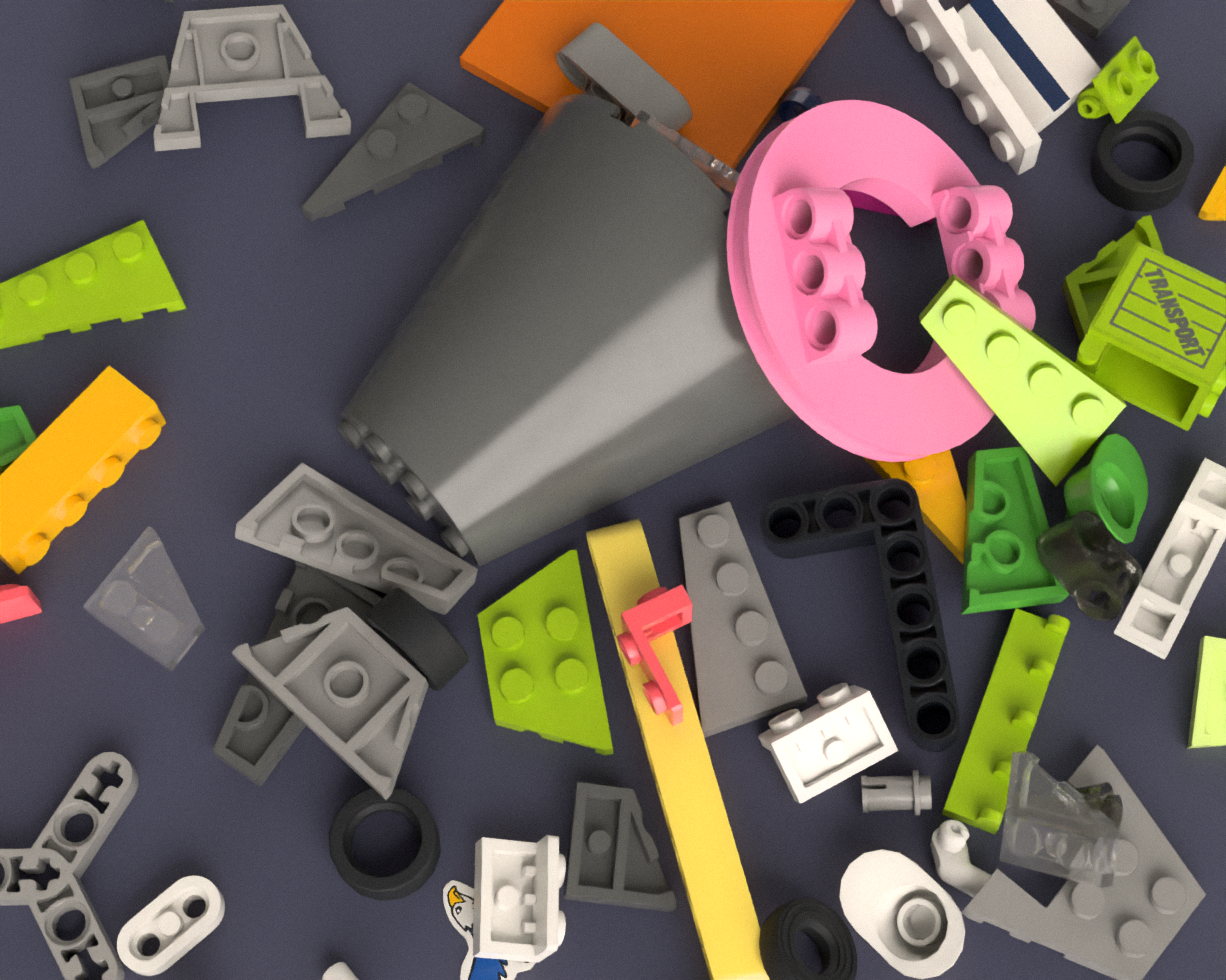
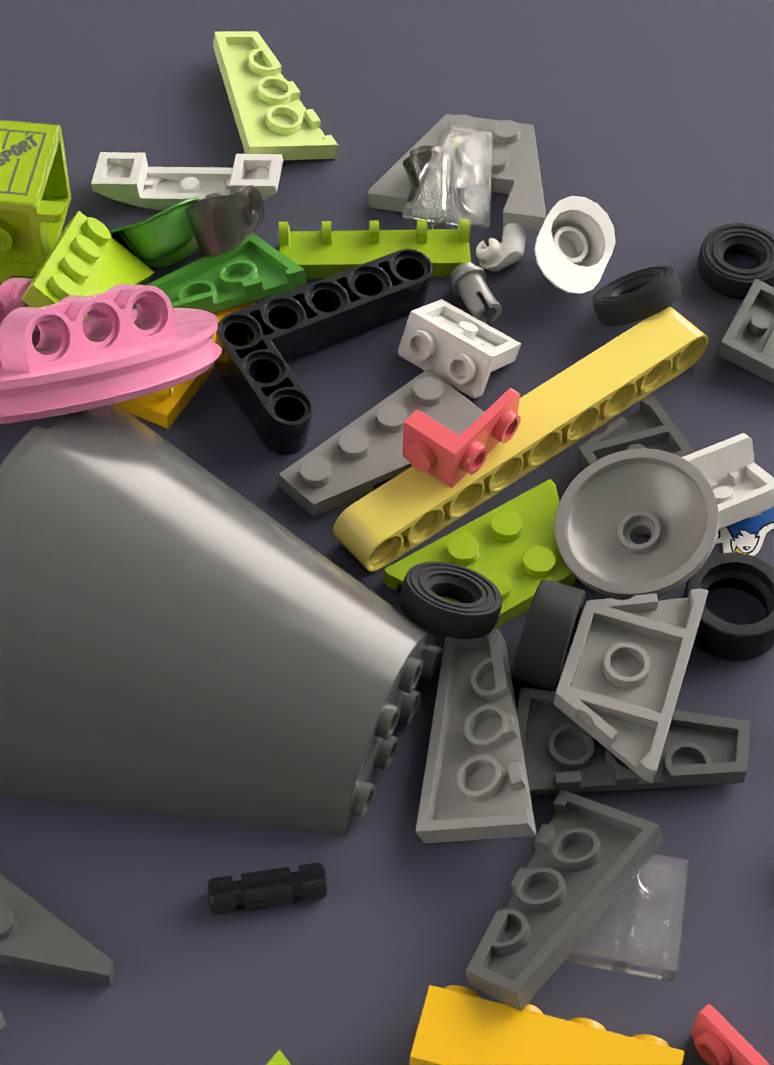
camera: 120 degrees left, 15 degrees down
(186, 550) = (568, 885): none -> dark grey wing
(317, 342) = (267, 888): none -> black axle
(455, 566) = (424, 604): none -> black tyre
(492, 755) = (631, 497): none -> light grey dish

